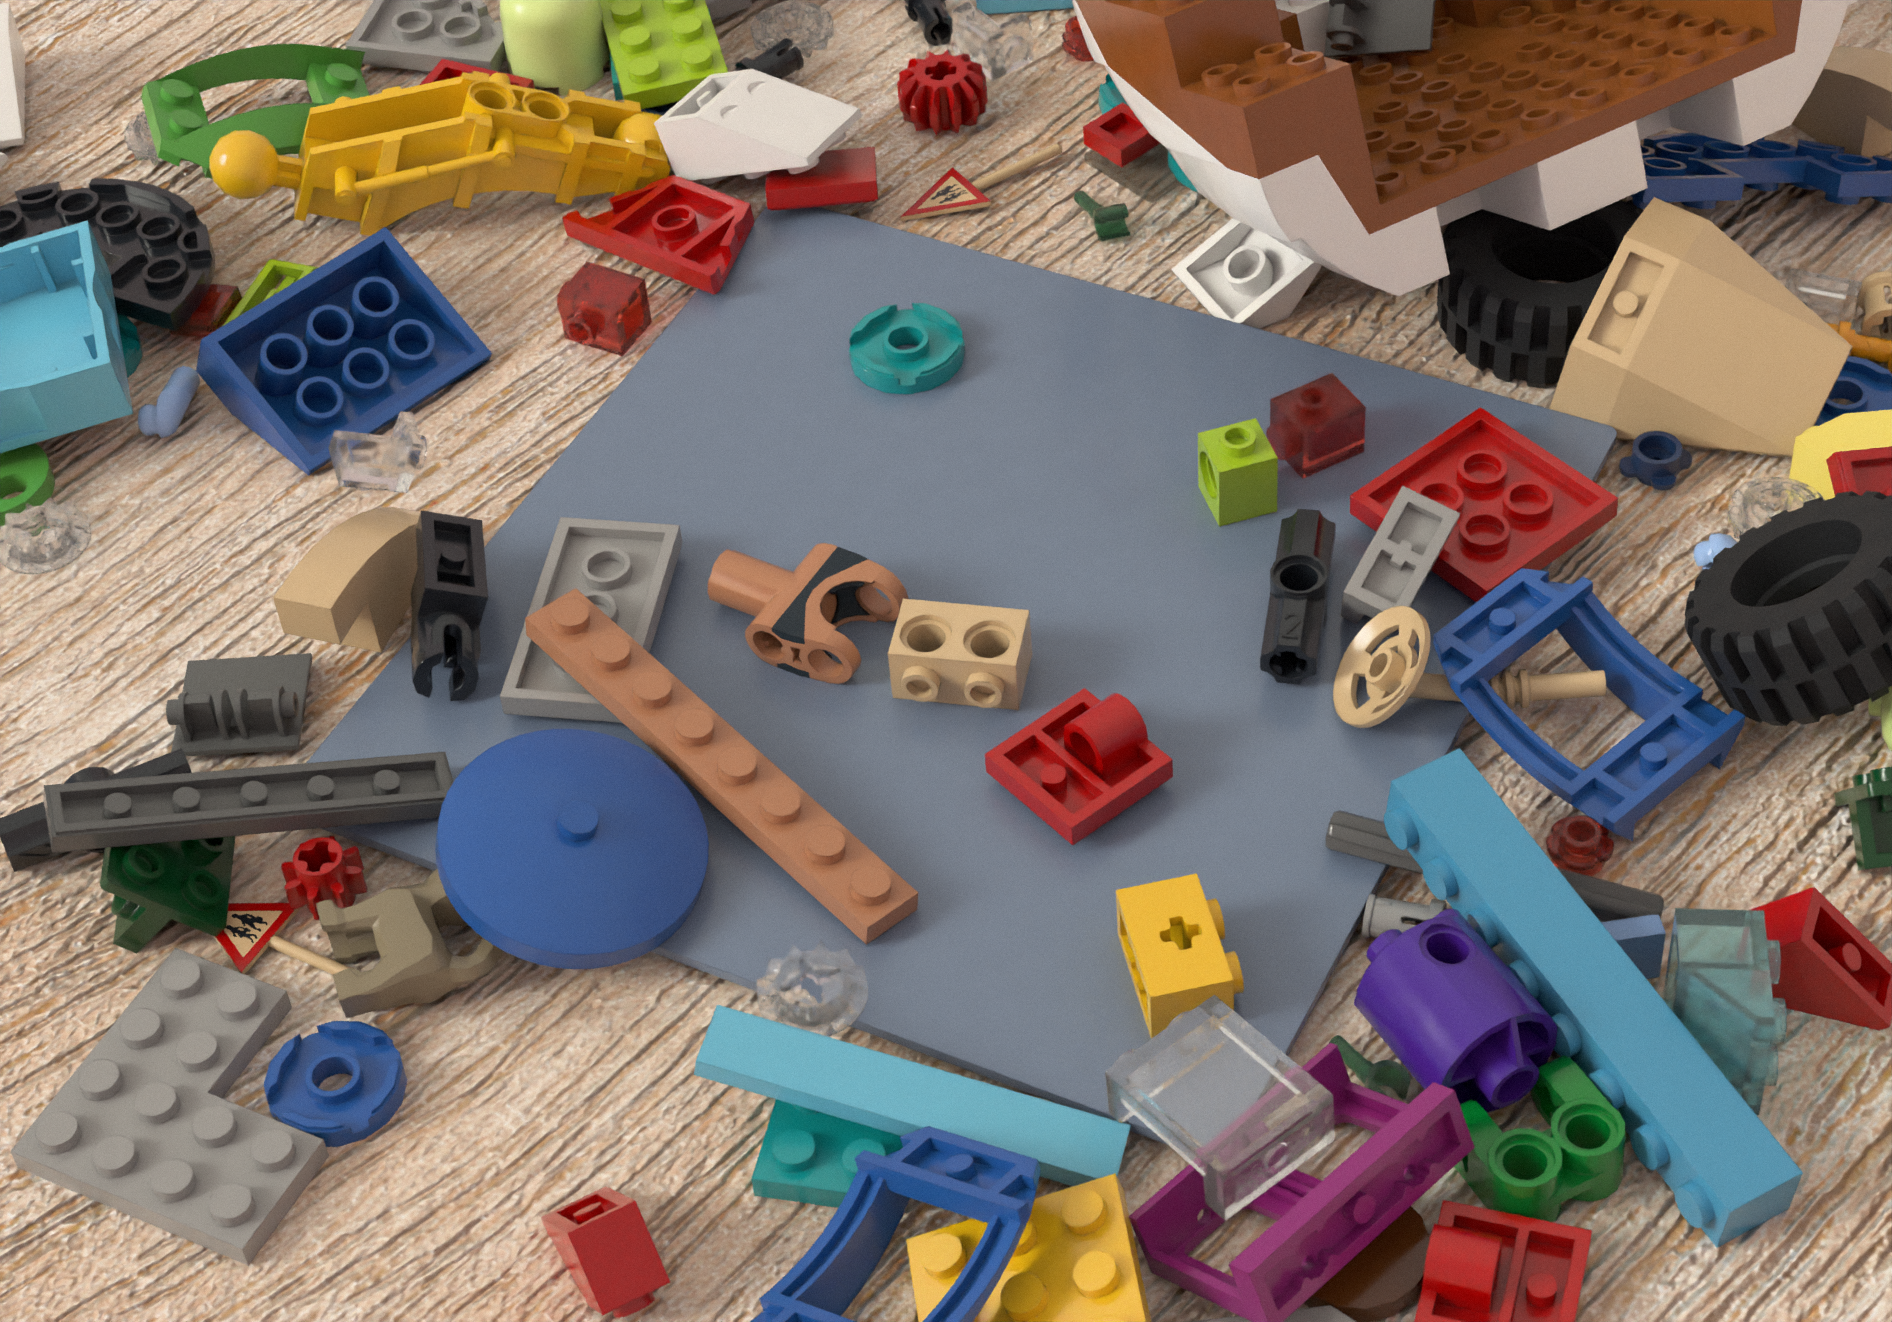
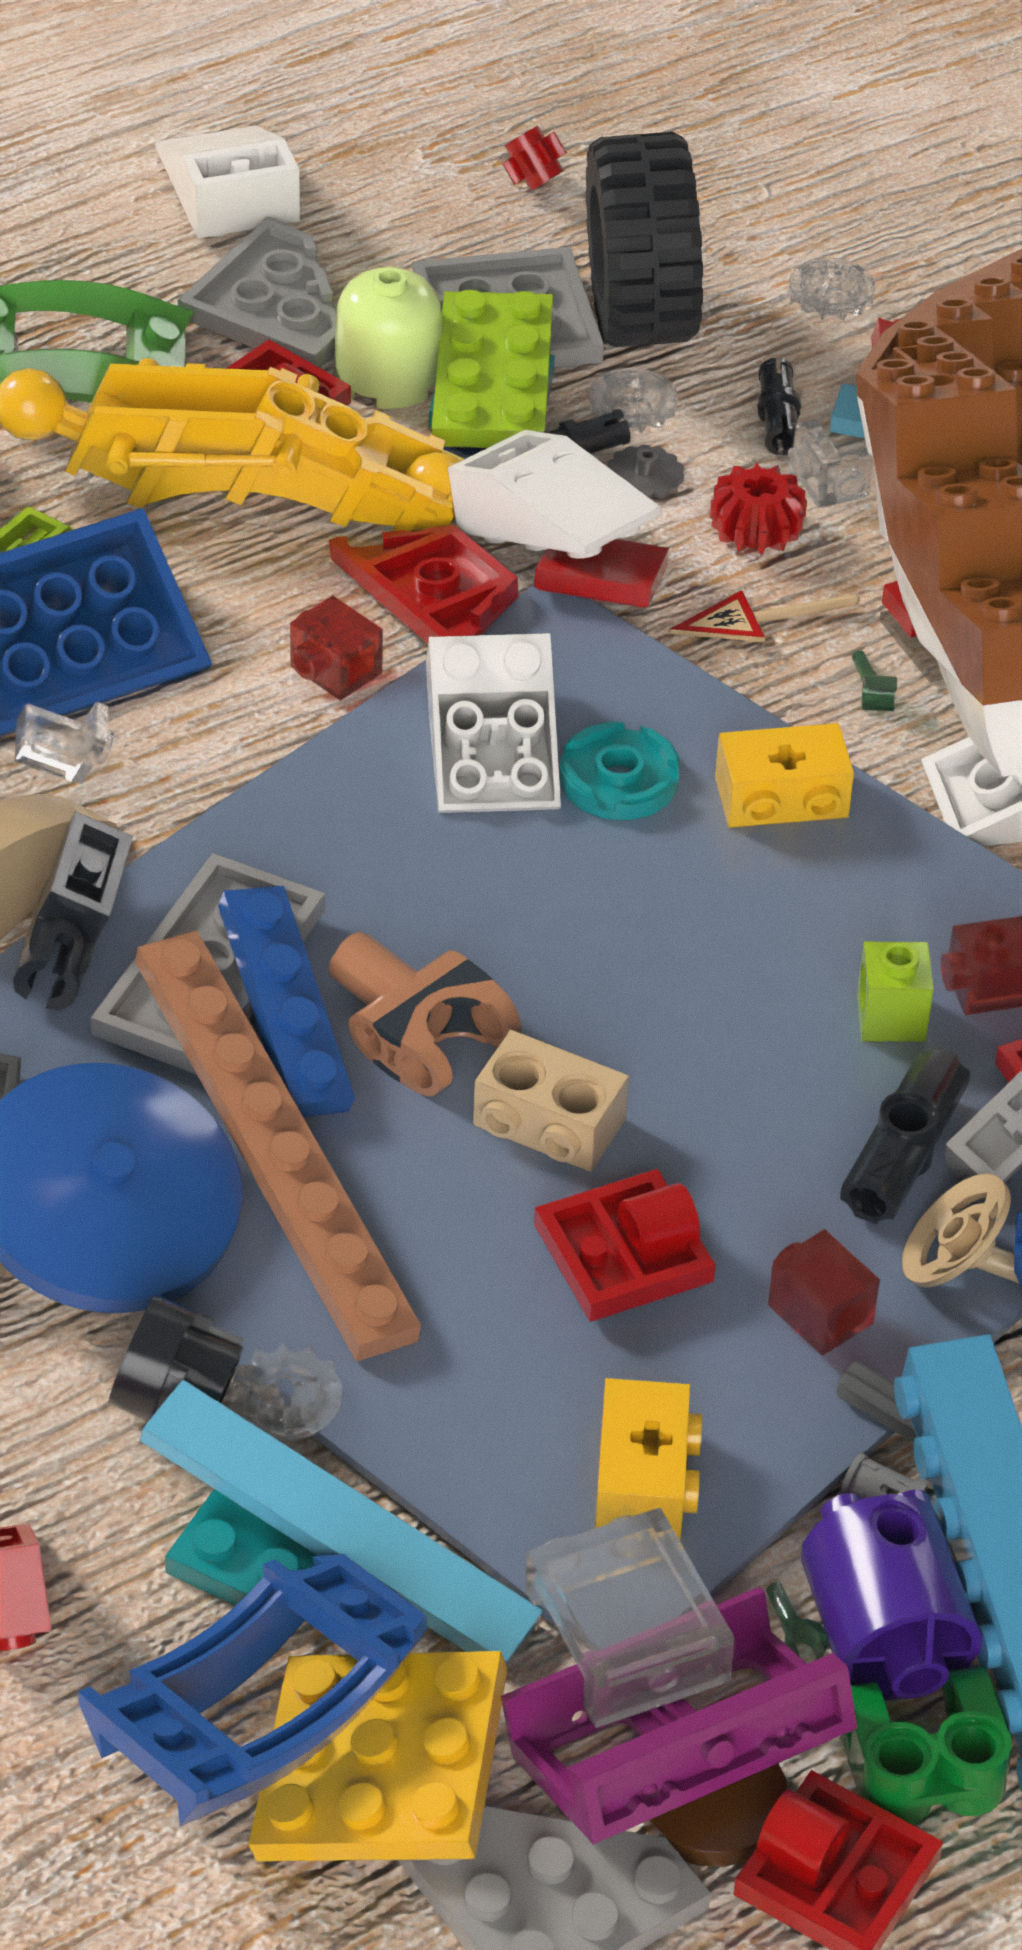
camera: 10 degrees right, 0 degrees up
(679, 627) = (286, 999): none -> blue plate
(687, 986) = (169, 1348): none -> black piece
(777, 334) = (493, 723): none -> white slope
(831, 82) = (648, 470): none -> flat silver piece
(1060, 311) = (784, 775): none -> yellow brick
(1281, 755) = (823, 1291): none -> clear red brick

